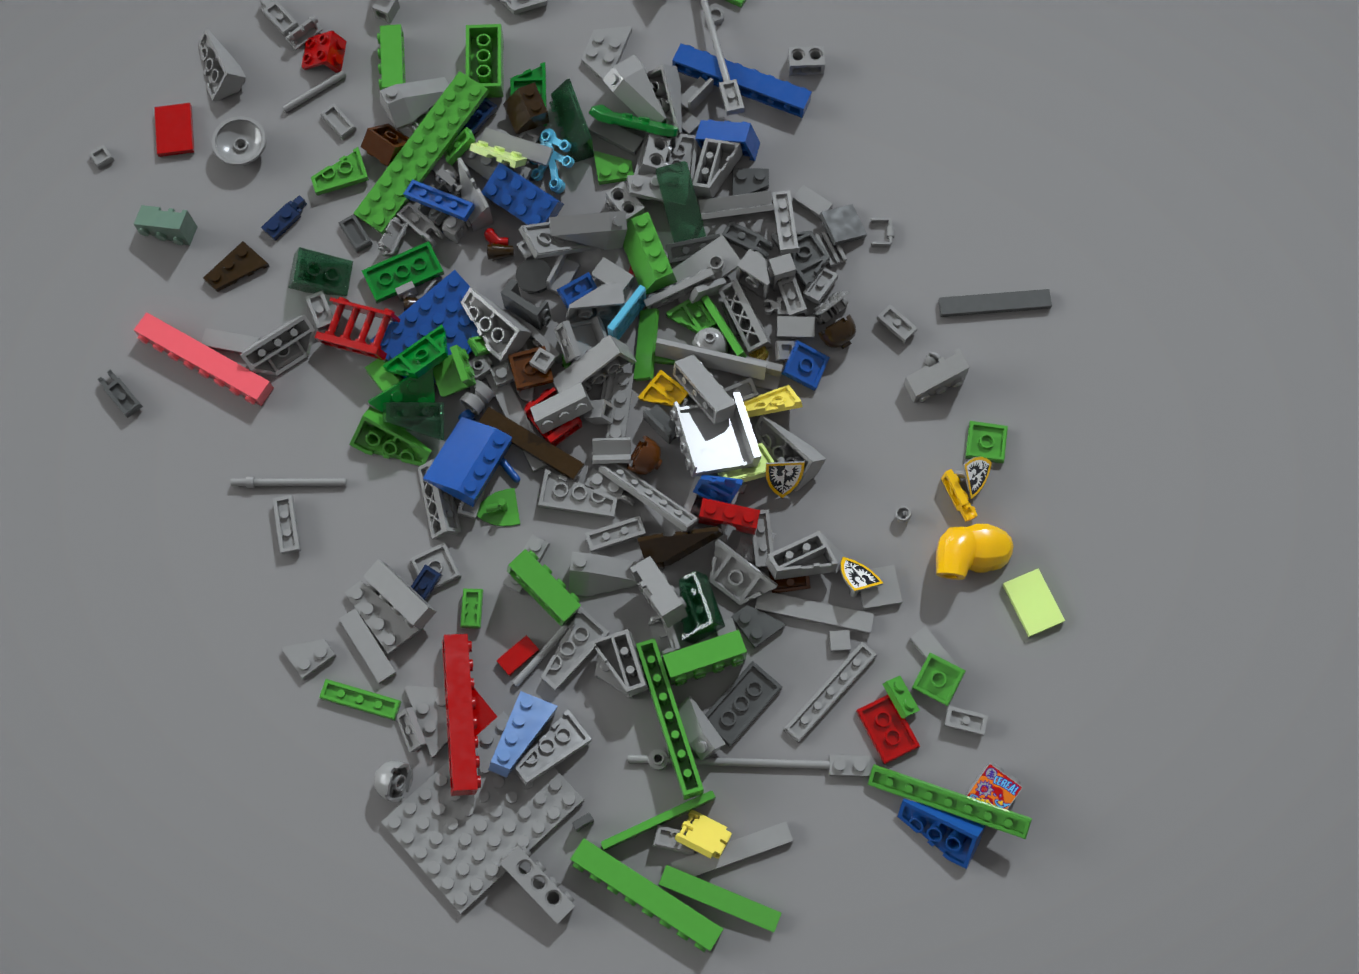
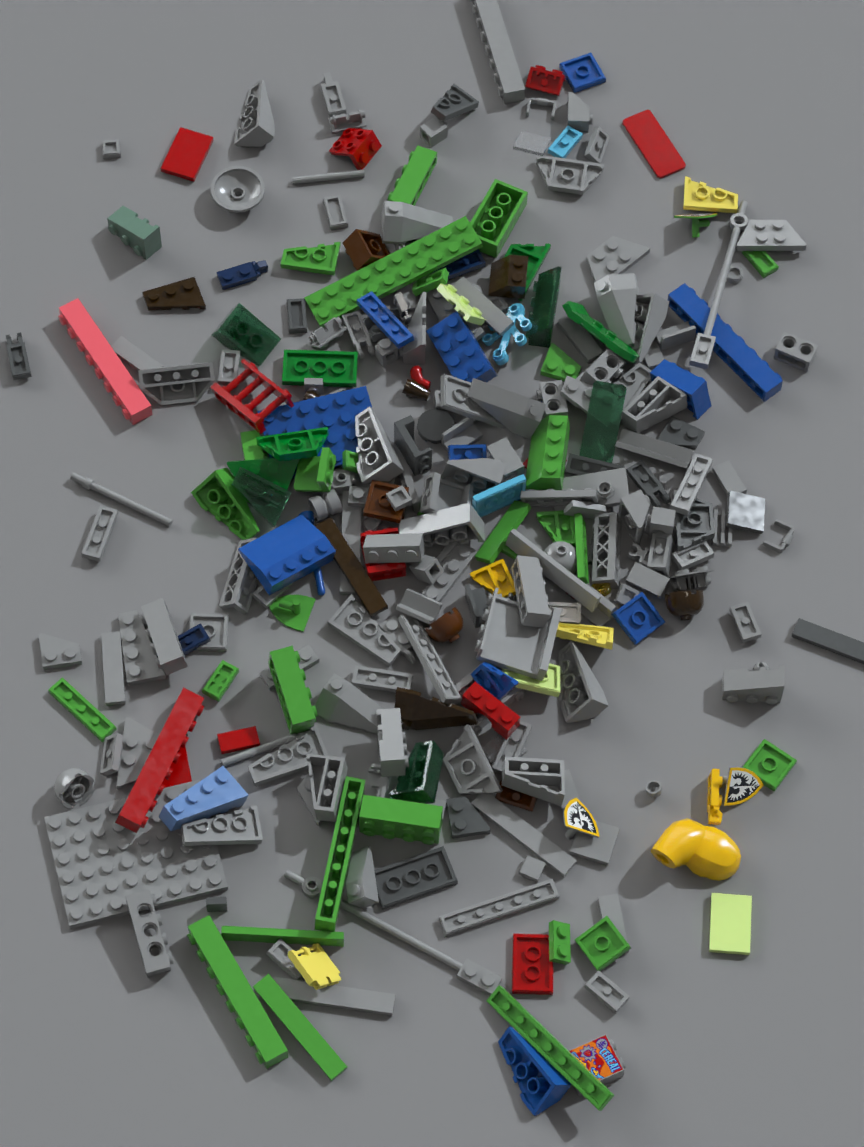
camera: 25 degrees right, 10 degrees down
(784, 476) = (560, 701): shield -> none

